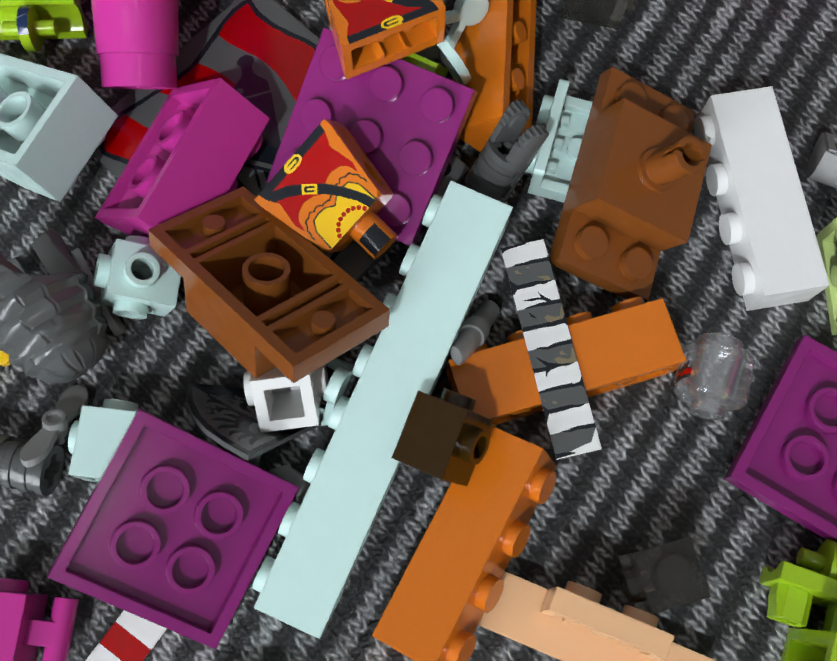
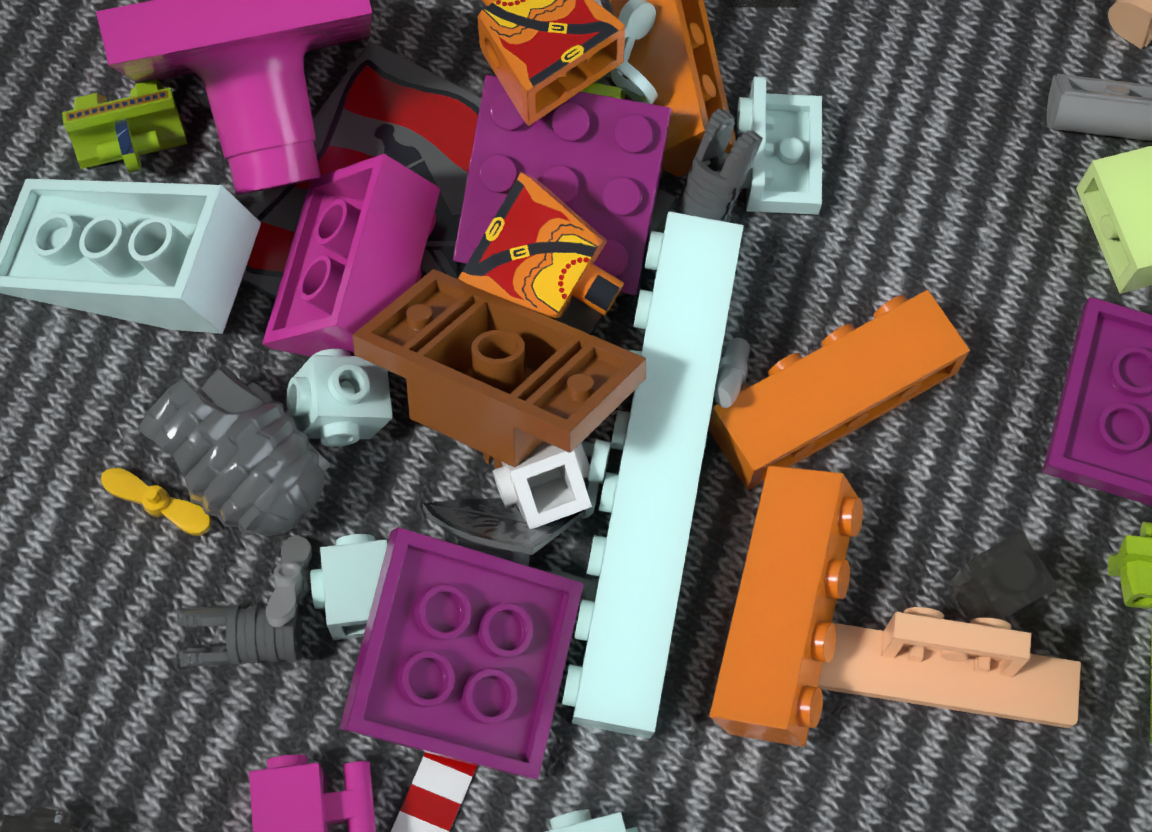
camera: 15 degrees left, 5 degrees down
(444, 436) = (734, 485): dark brown brick -> none
(550, 350) = (821, 370): sticker -> none
(629, 187) = (860, 179): dark orange brick -> none
(714, 376) = (1004, 362): clear head -> none
(760, 200) = (1004, 162): white brick -> none

